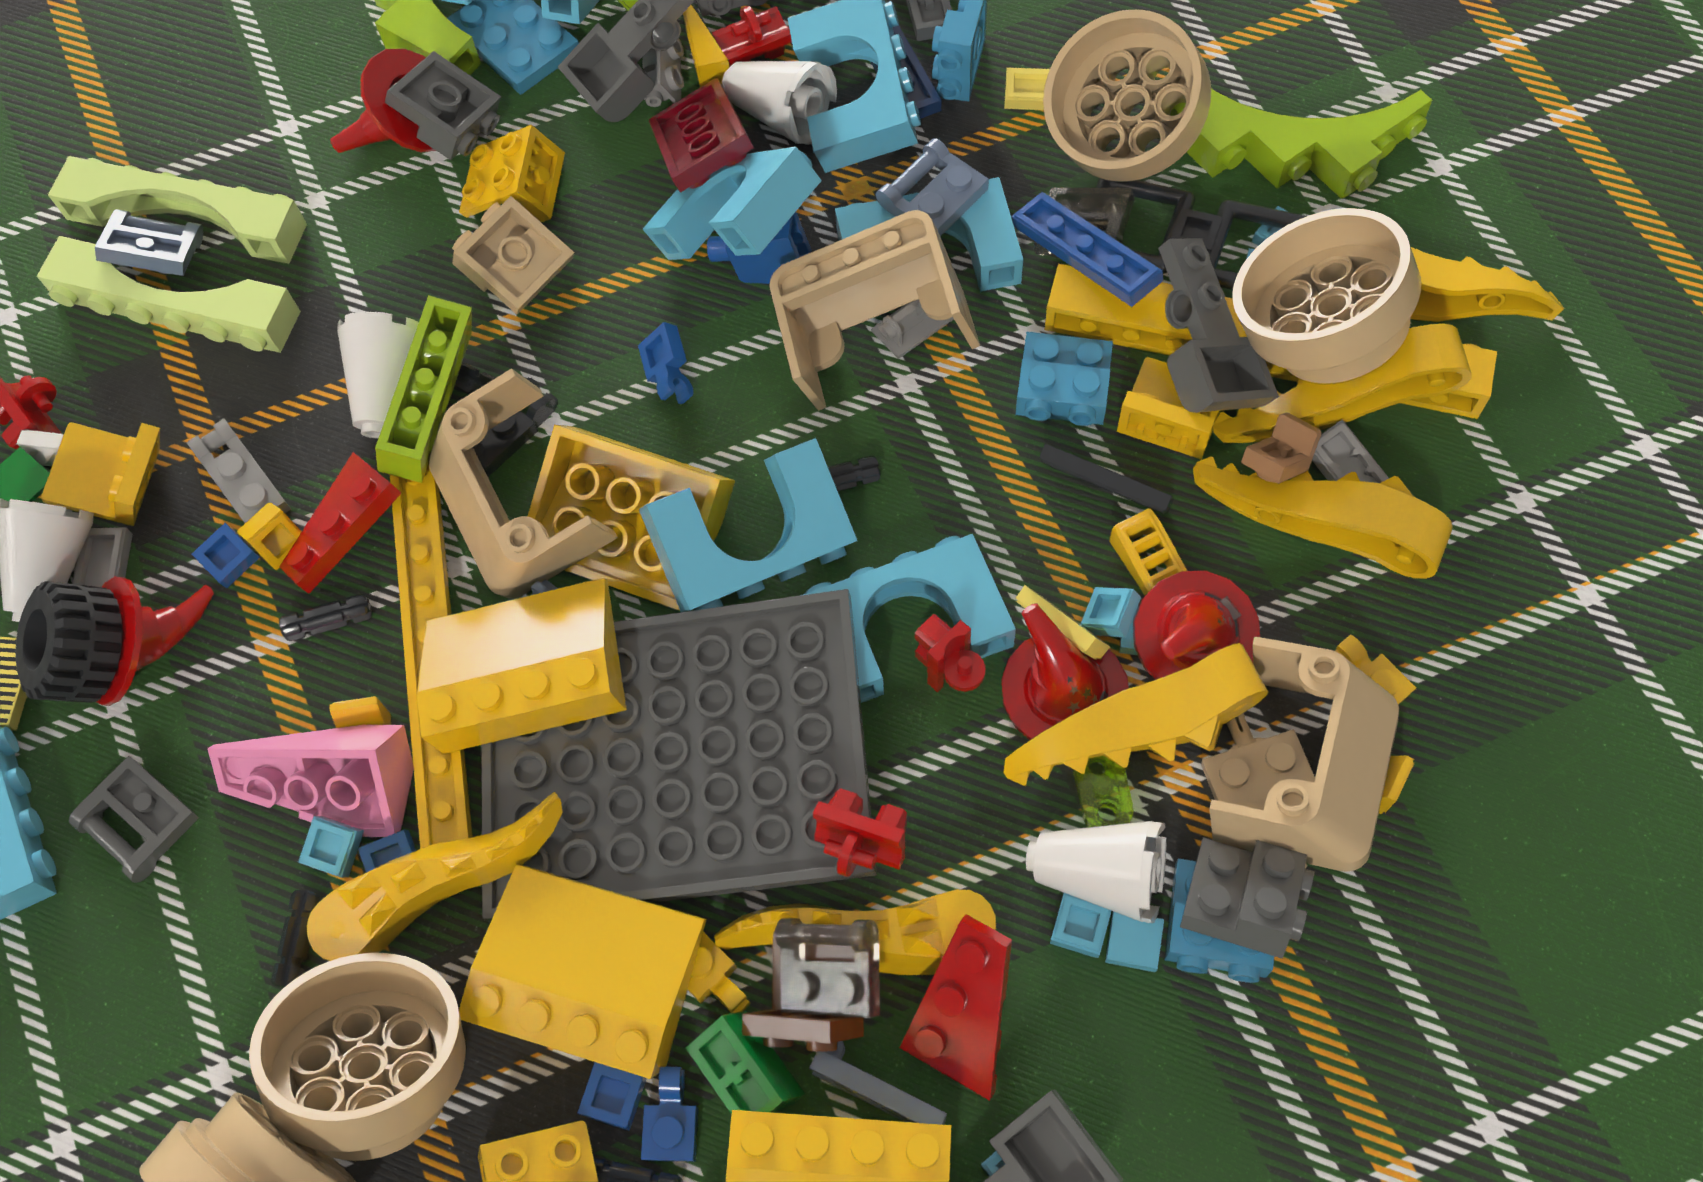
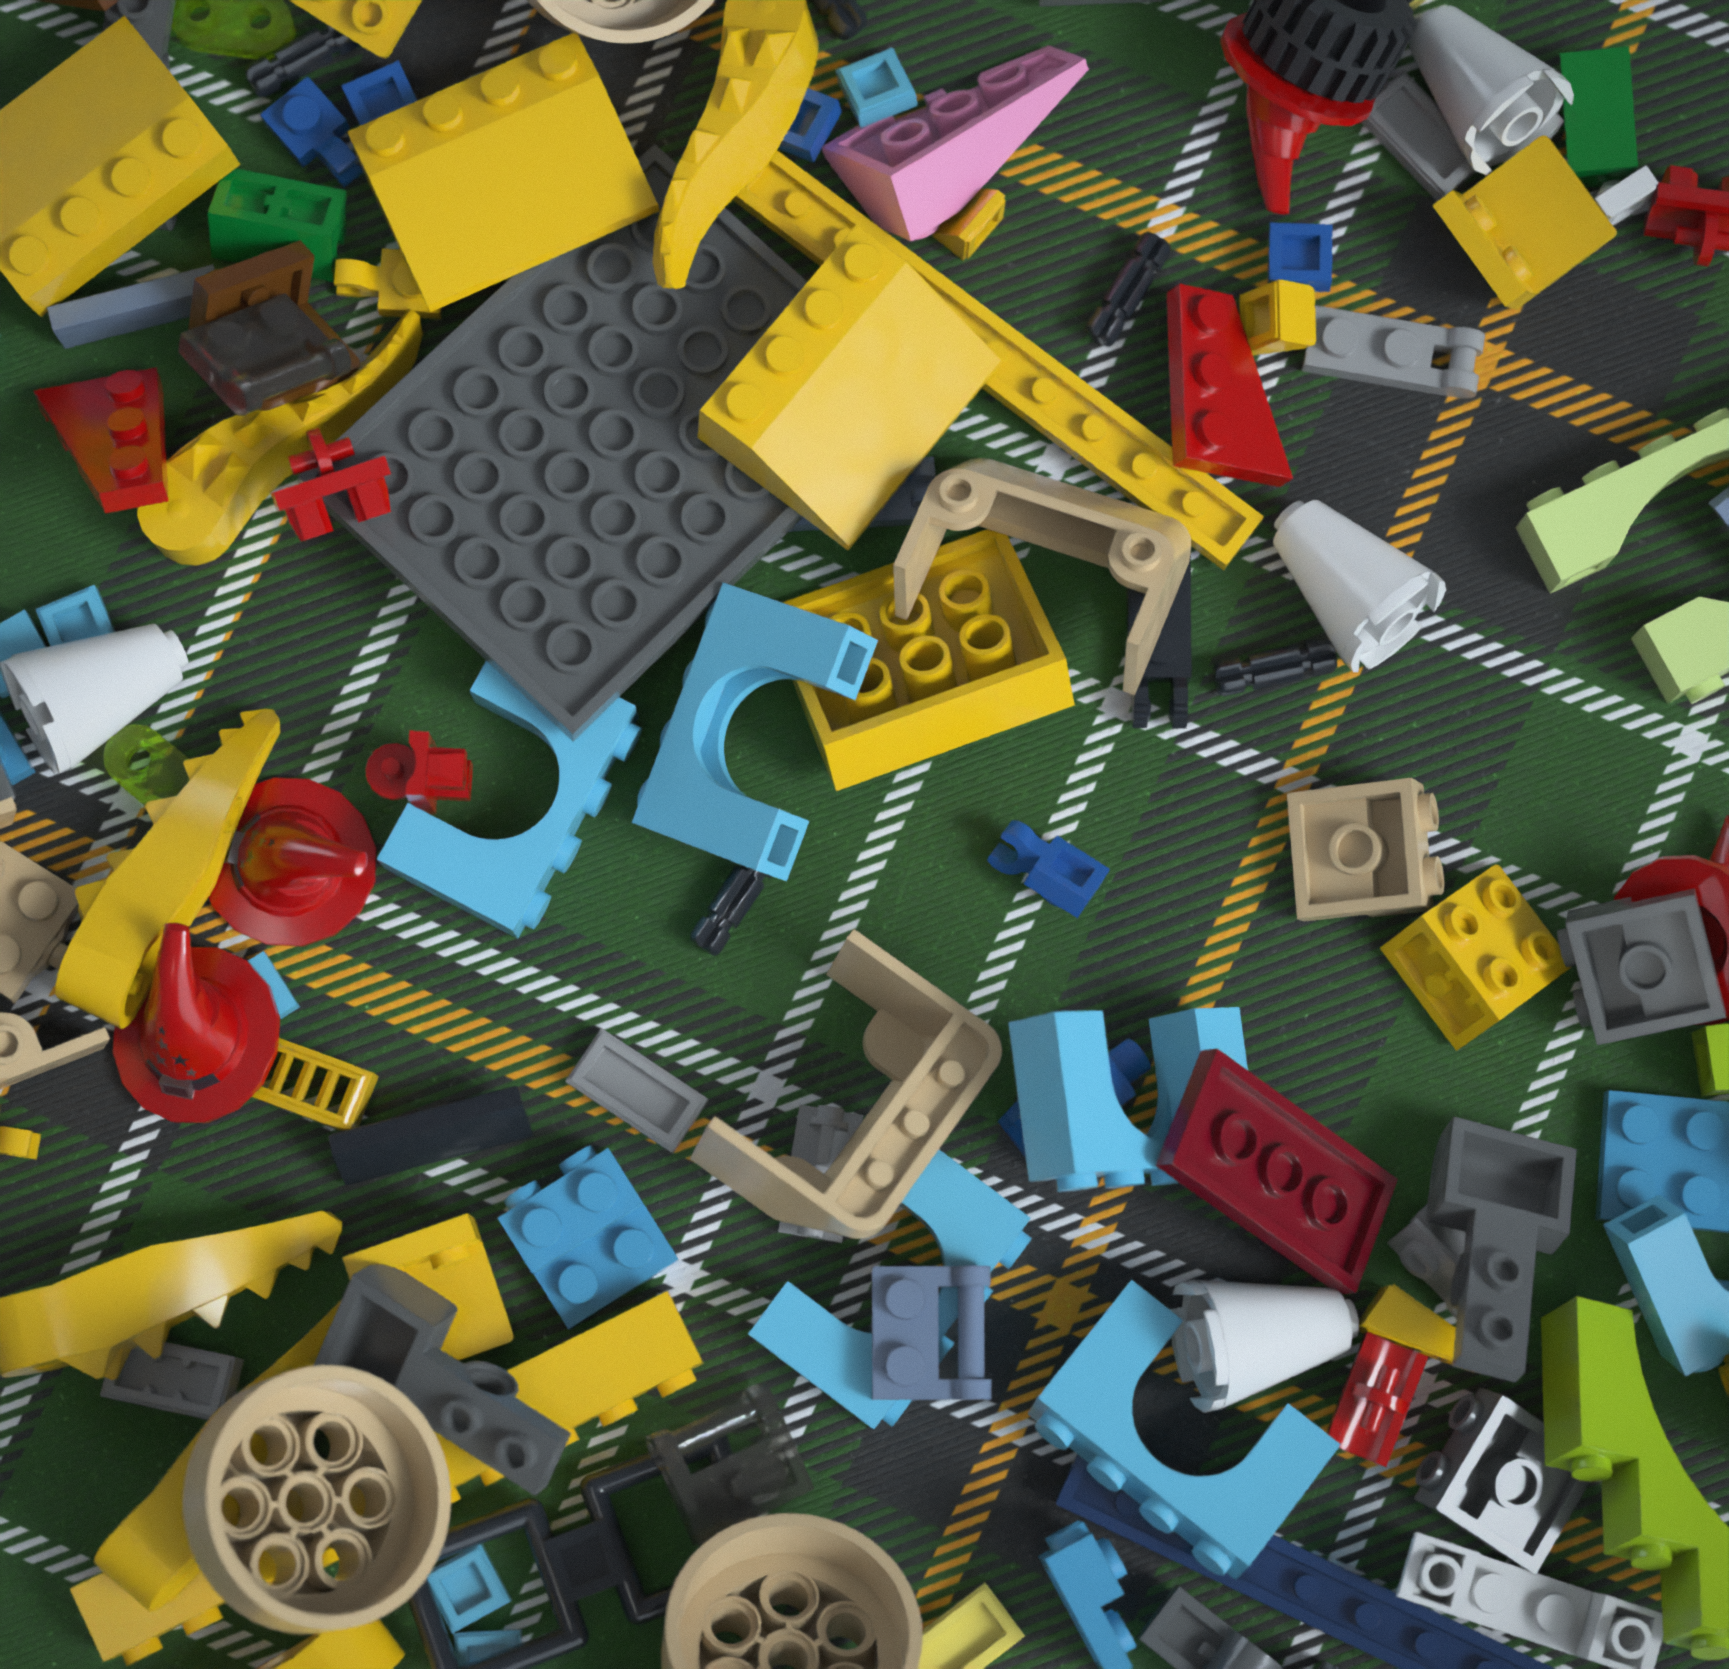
camera: 130 degrees right, 15 degrees up
(424, 389) = (1257, 585): lime brick -> none
(976, 428) = (637, 1091): none -> light grey tile
(1076, 633) = (339, 916): light yellow tile -> none
(1087, 249) = (681, 1403): blue tile -> none
(1111, 611) = (304, 979): medium azure tile -> none
(1285, 452) = (252, 1314): medium nougat bracket -> none

